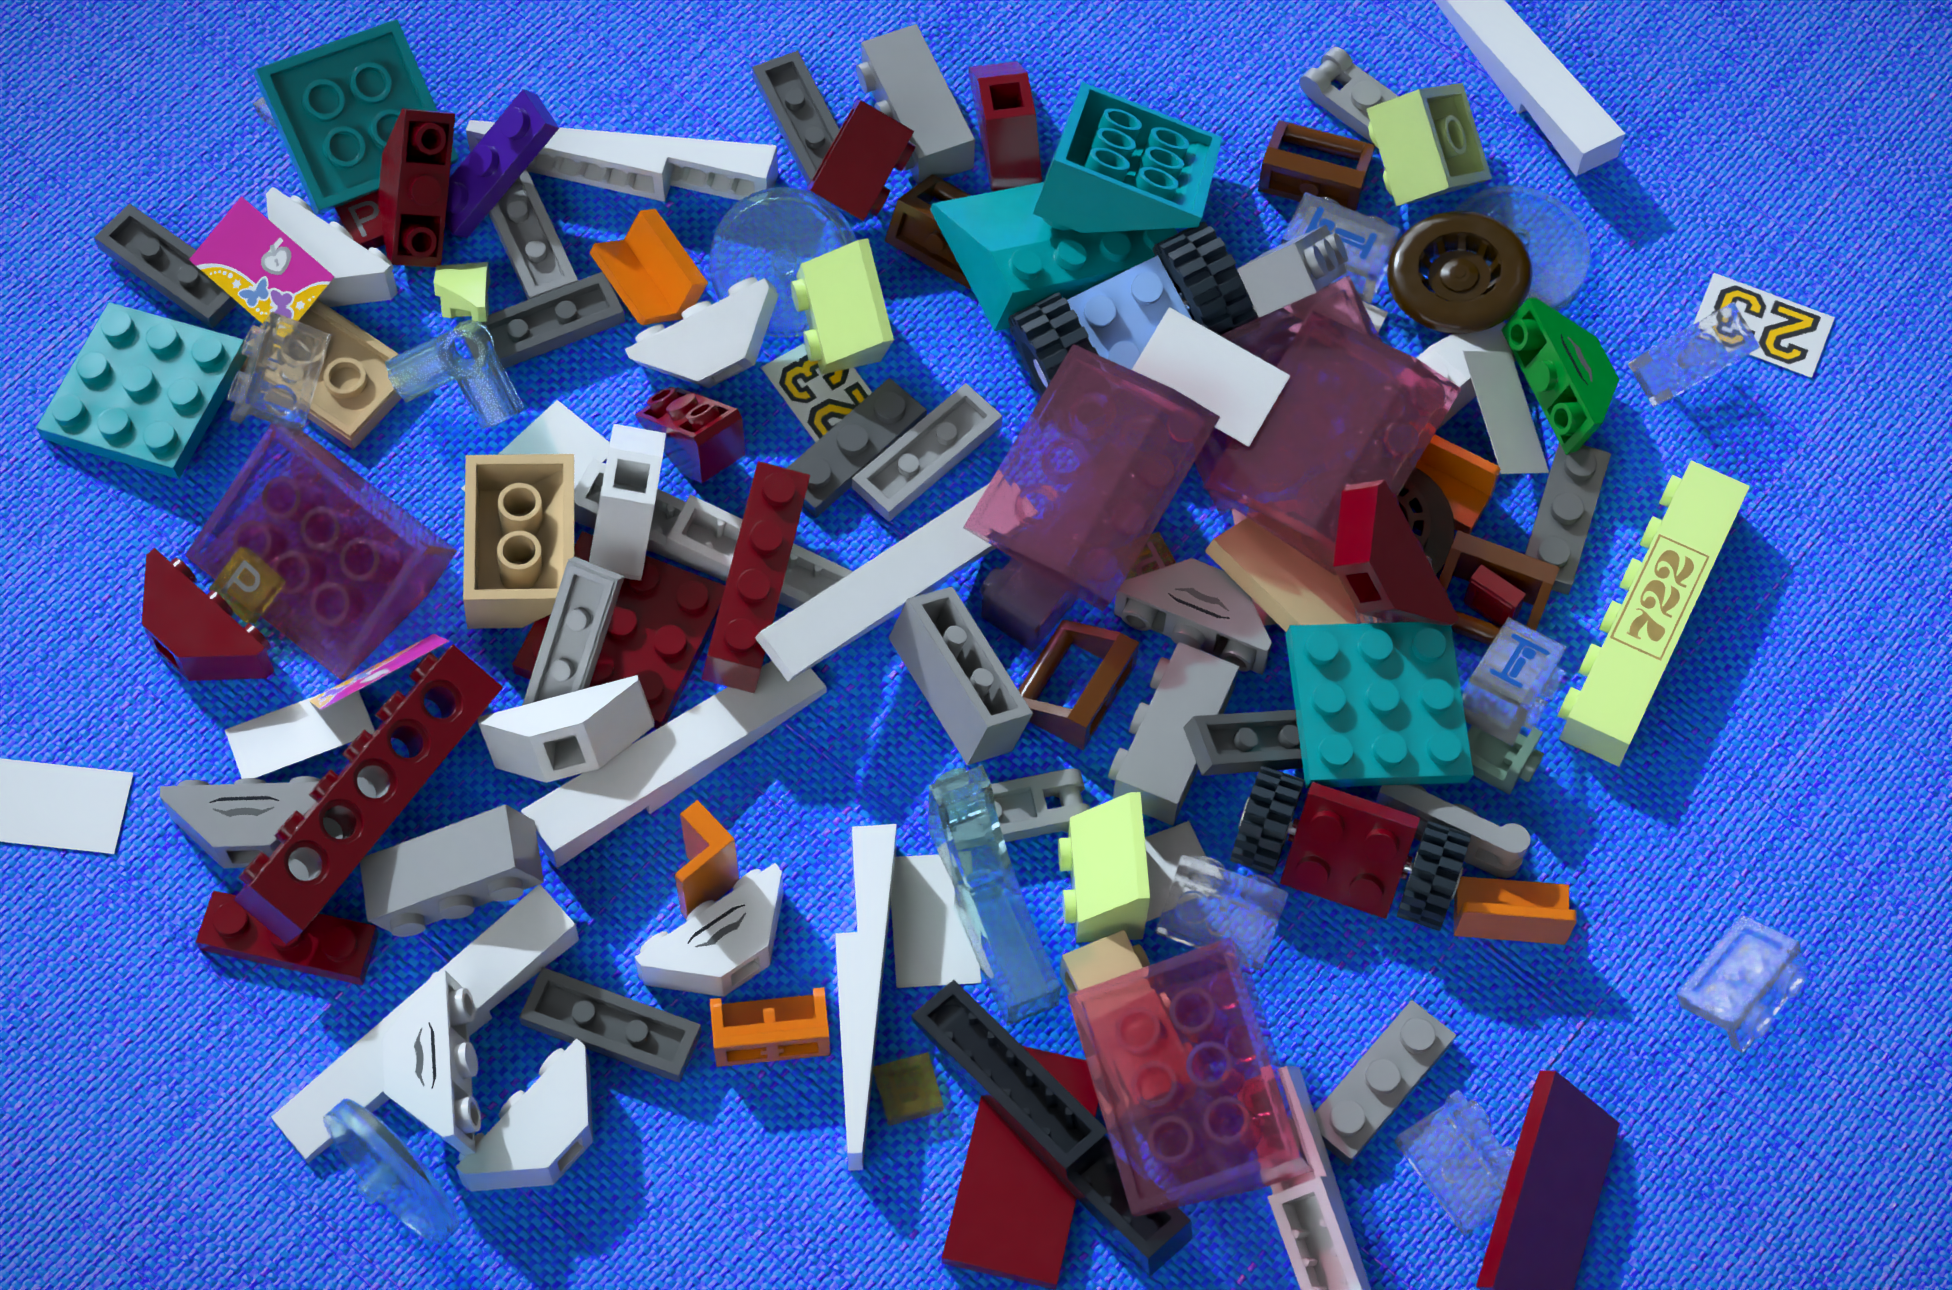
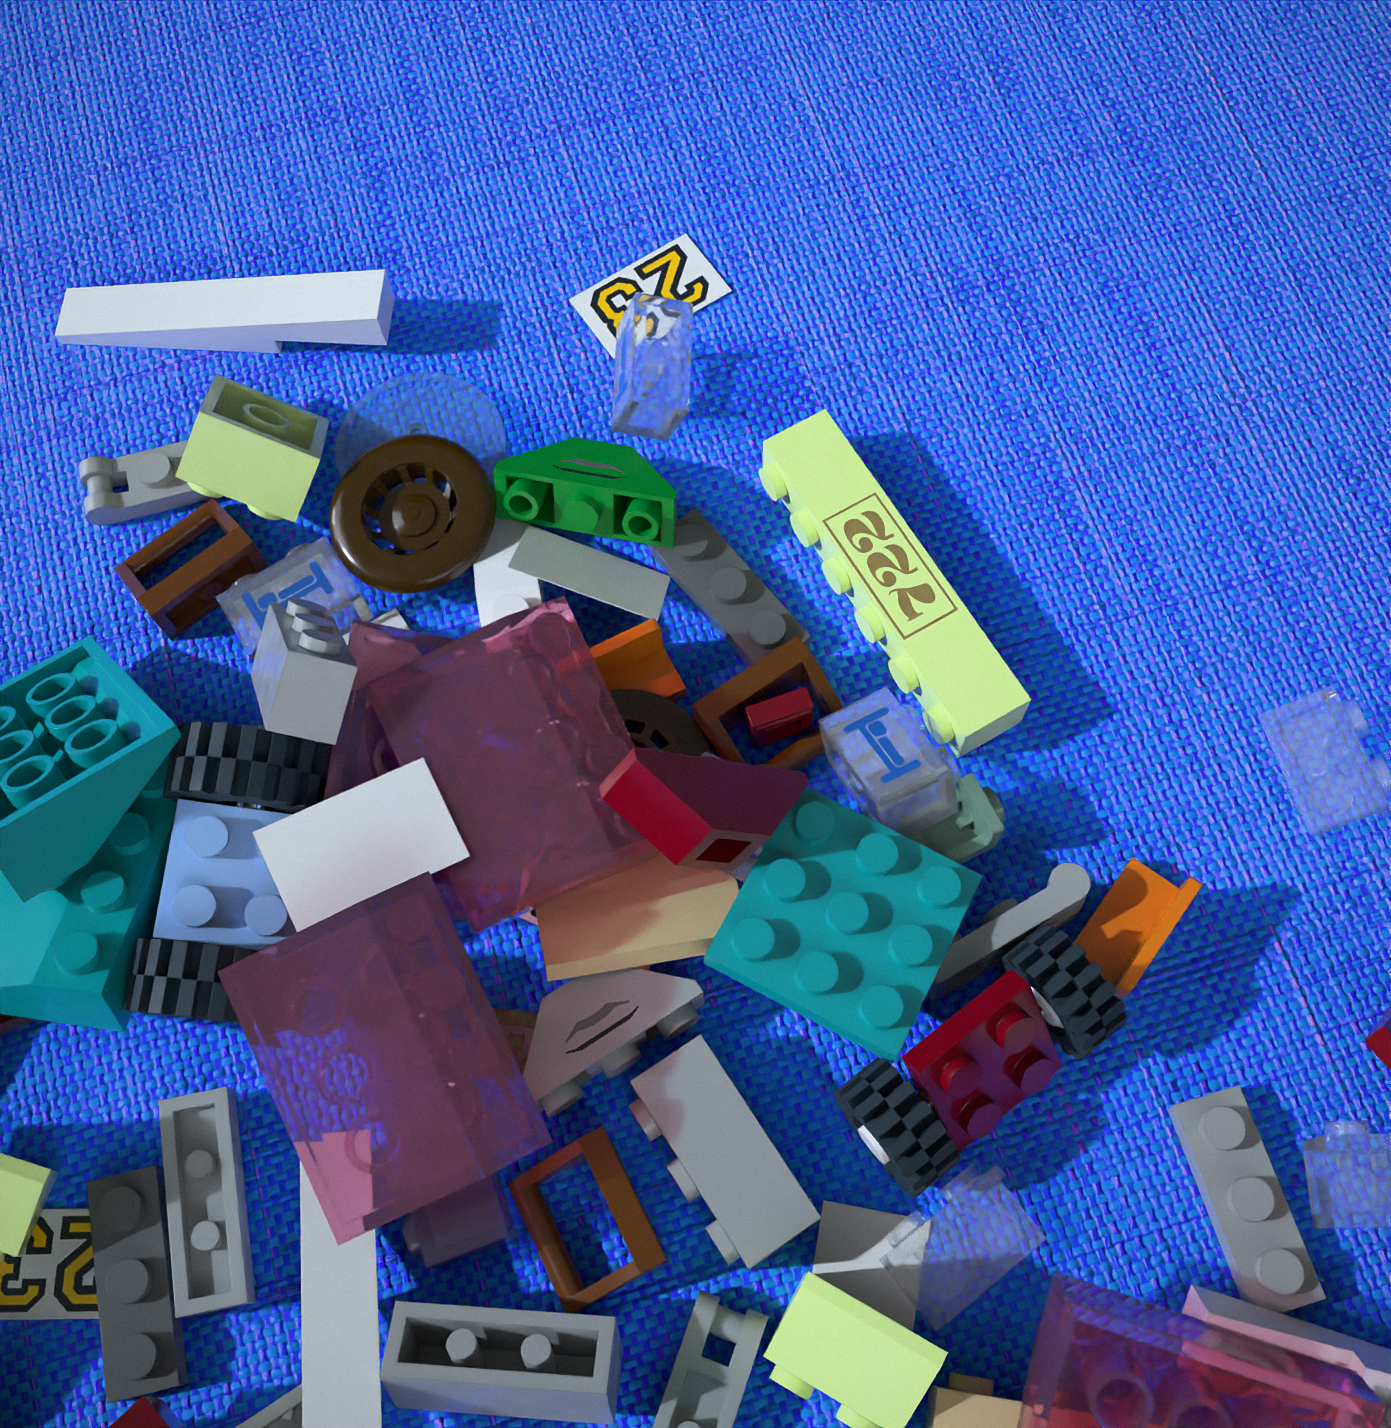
camera: 50 degrees left, 5 degrees up
(1244, 742) = (796, 1093): dark grey plate -> none

